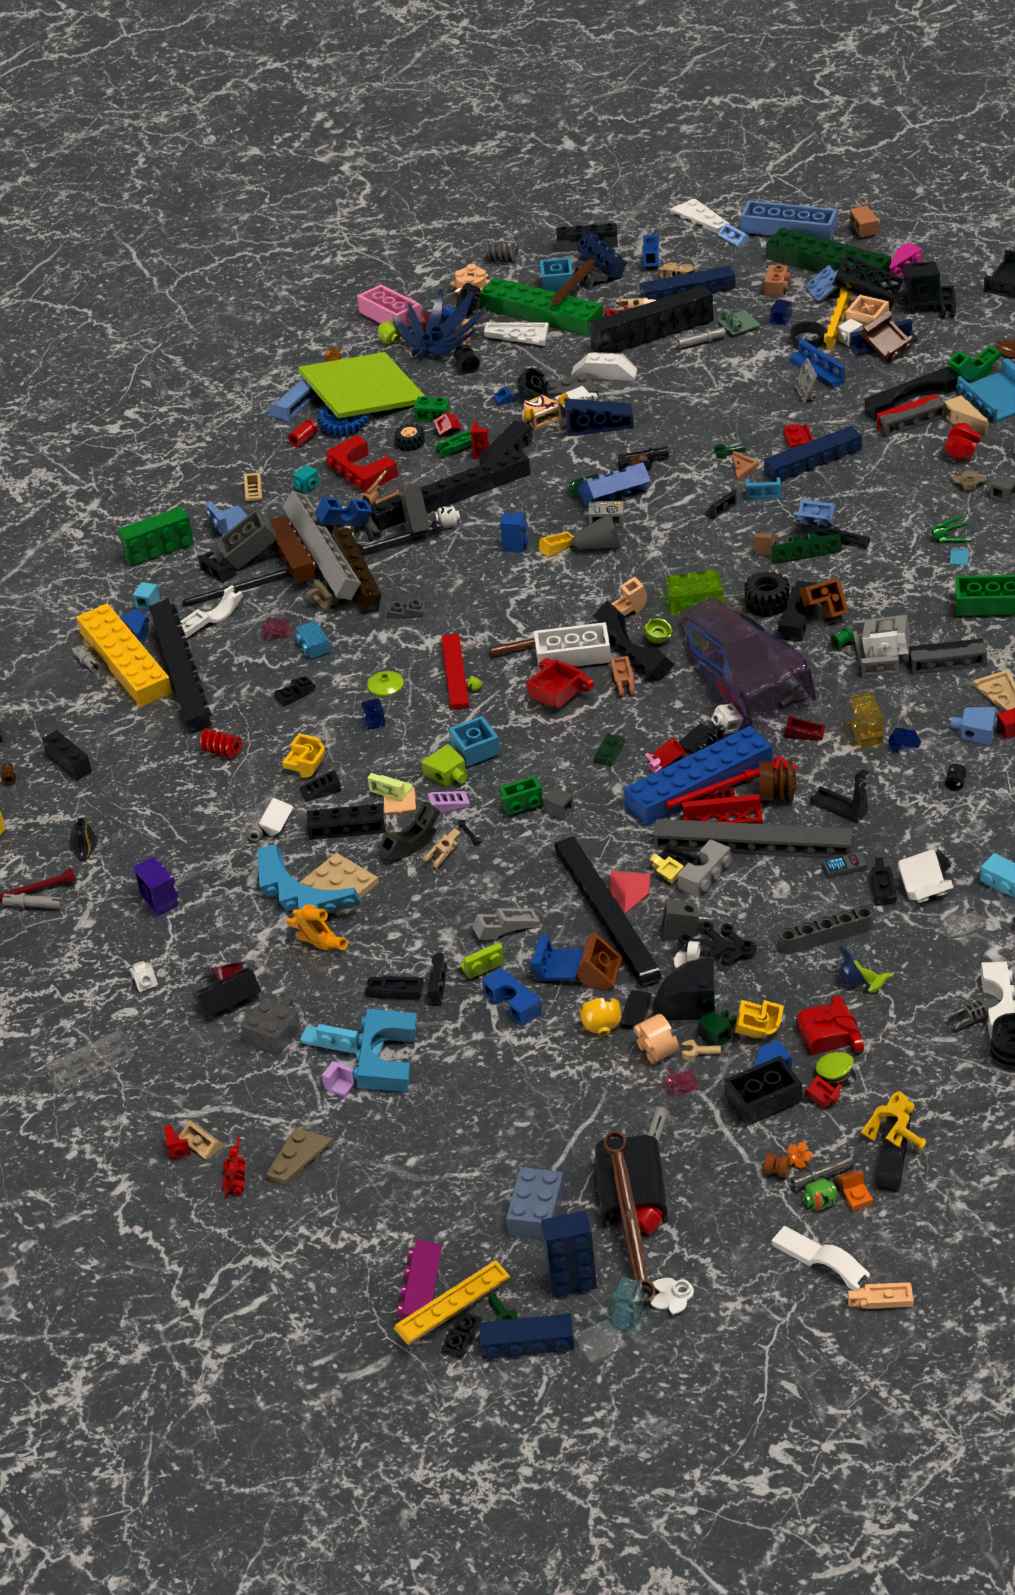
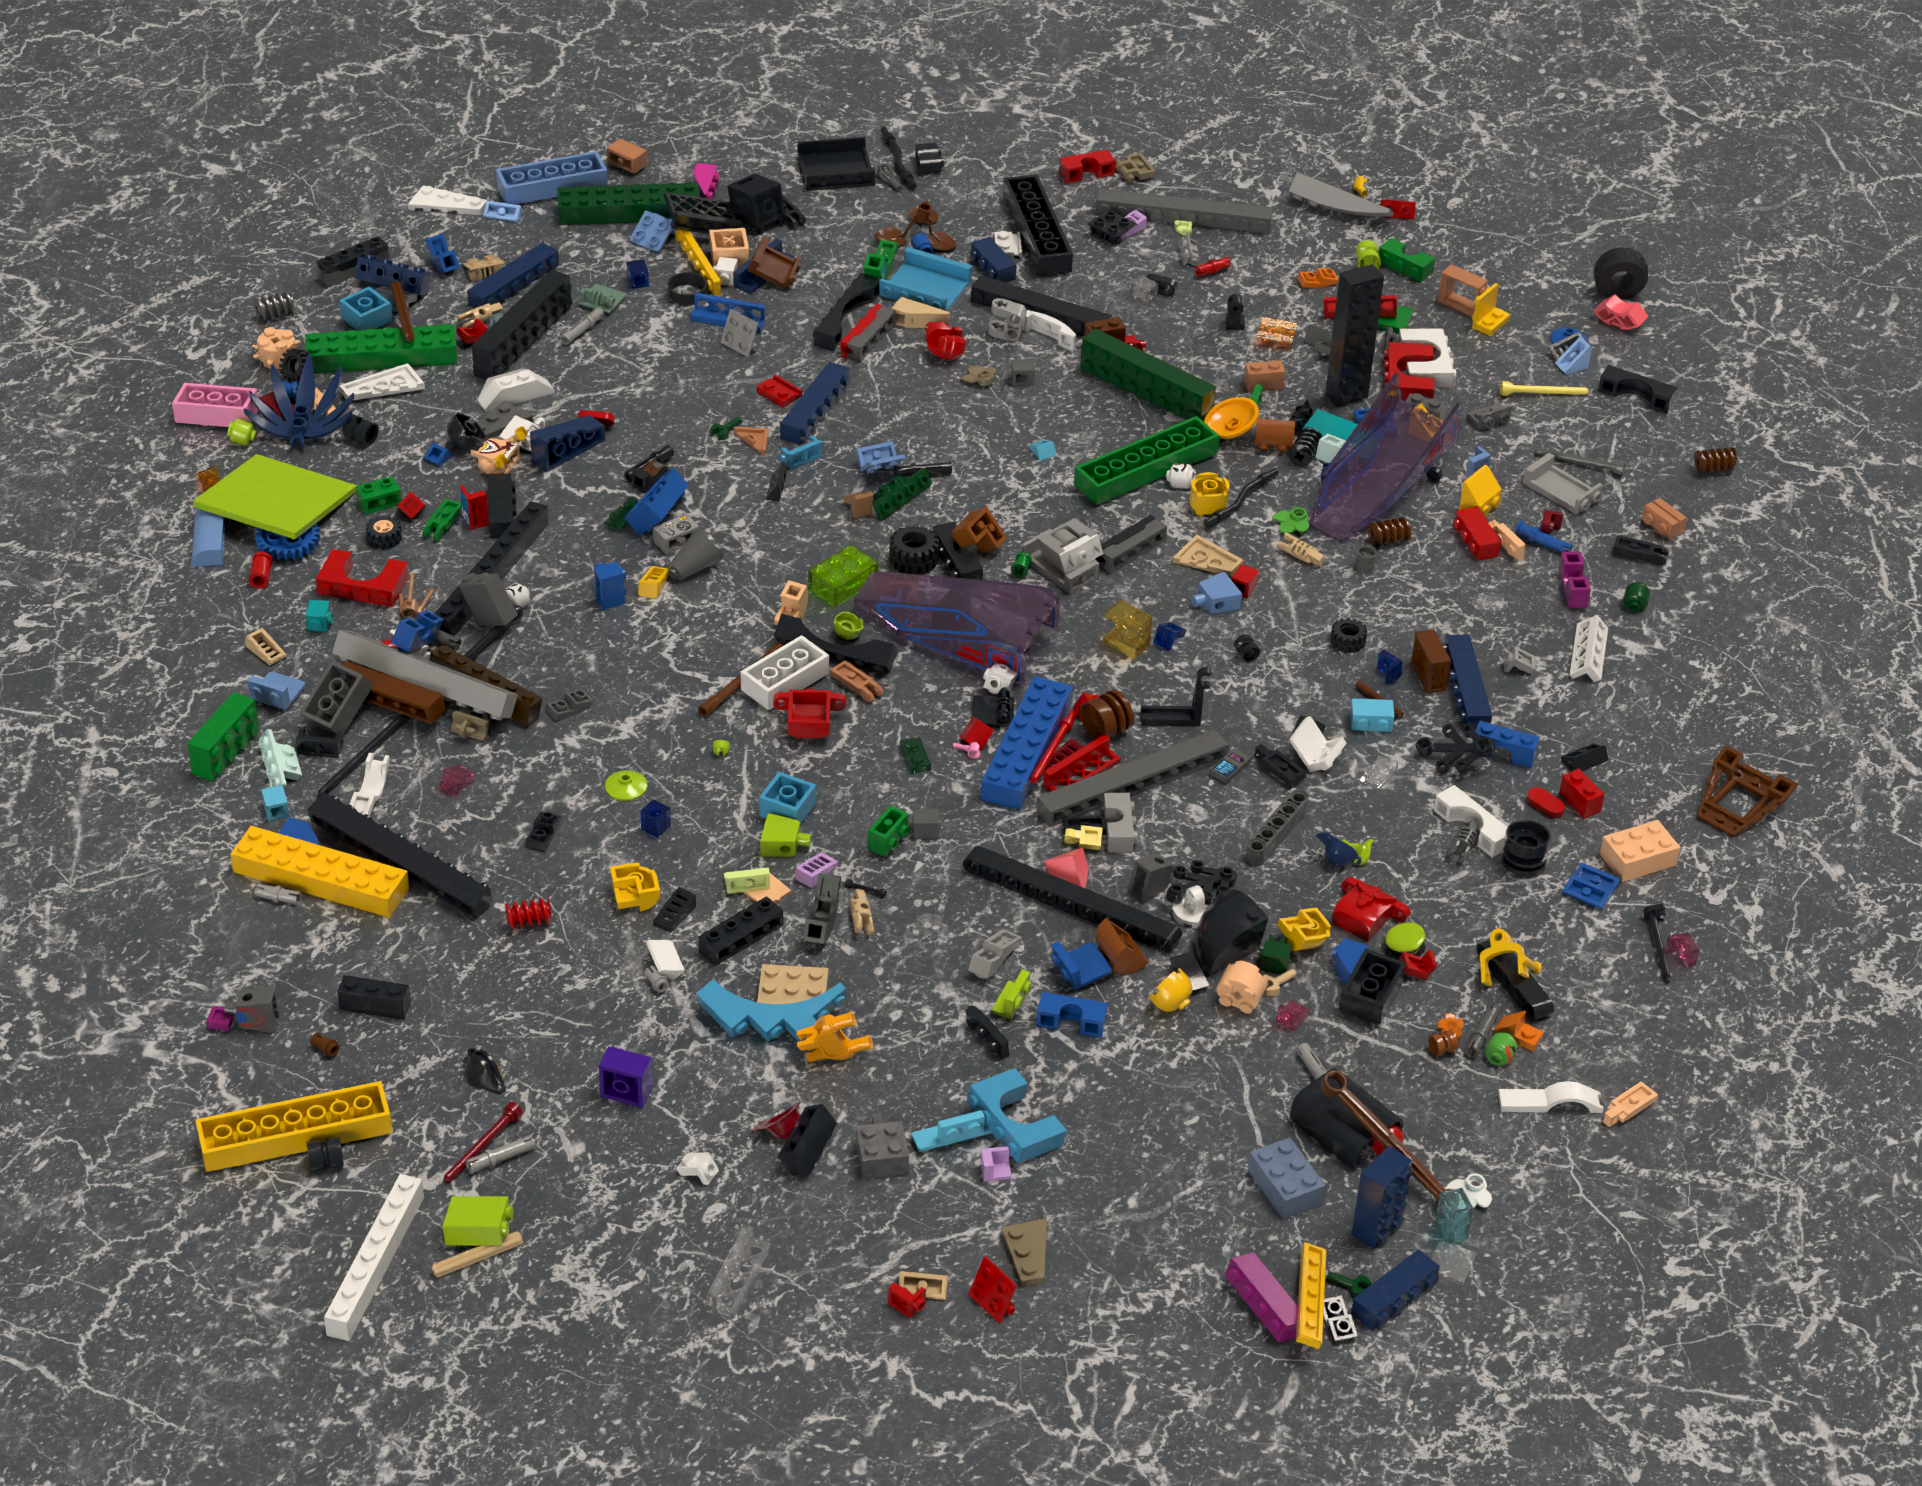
camera: 45 degrees left, 0 degrees up
(181, 569) = (279, 760): none -> light aqua bracket
(312, 639) = (509, 773): dark azure brick -> none
(394, 987) = (954, 1058): black hinge -> none
(455, 671) = (686, 744): red tile -> none
(639, 408) = (605, 418): none -> red tile
(776, 280) = (599, 243): nougat brick -> none
(803, 729) = (1070, 662): dark red slope -> none
(940, 531) = (1008, 432): green plant -> none

